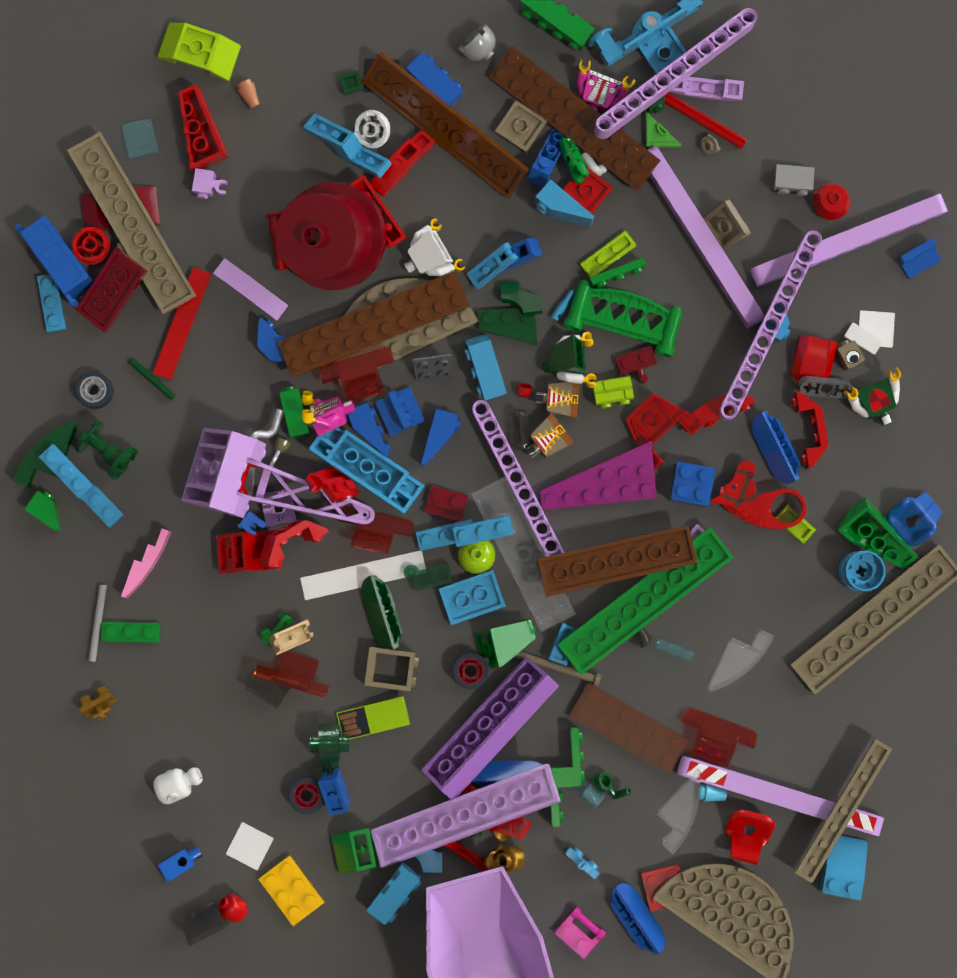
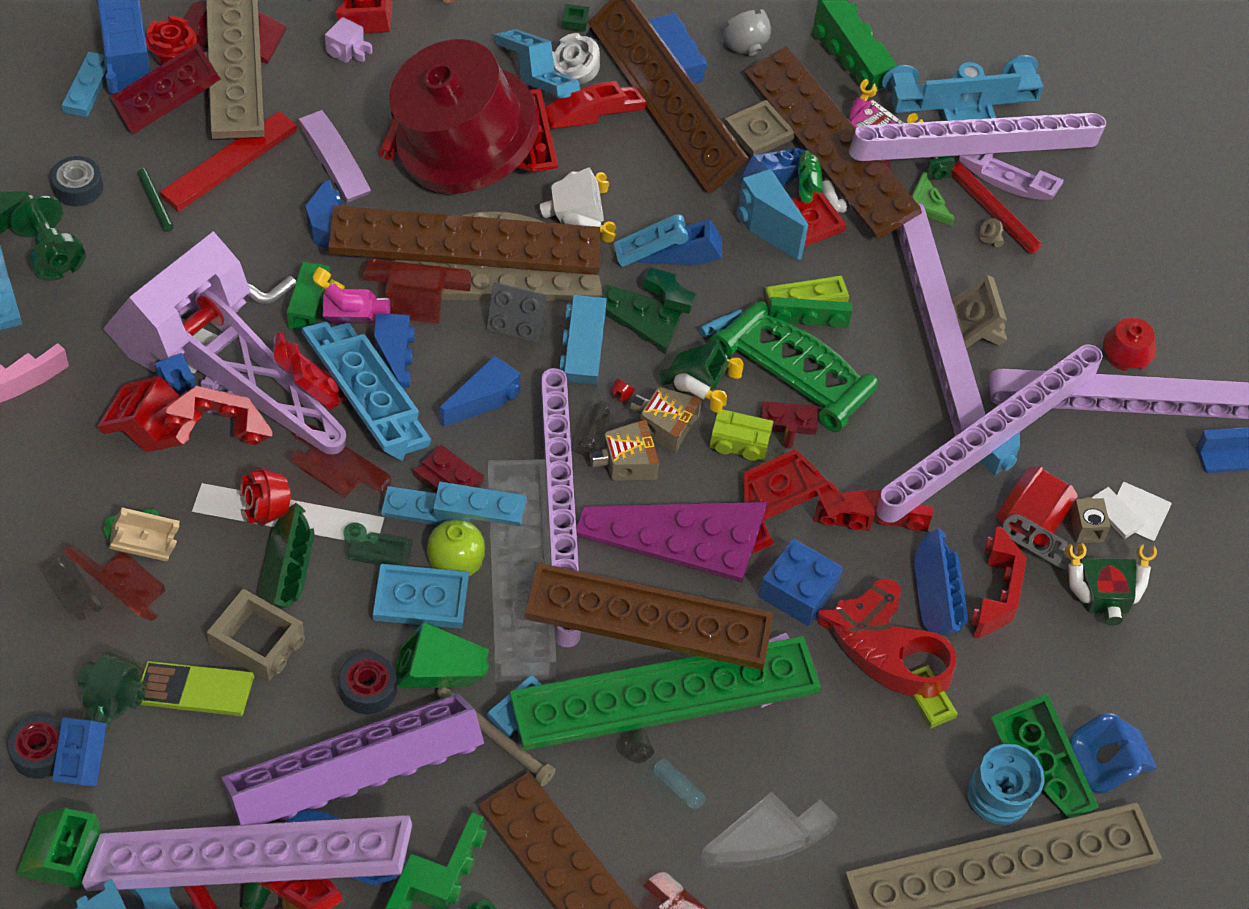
camera: 20 degrees right, 30 degrees down
(281, 445) = (271, 325): olive hinge -> none
(348, 577) = (265, 496): none -> red cone
(399, 411) = (446, 348): blue bracket -> none
(793, 179) = (1087, 303): light grey brick -> none

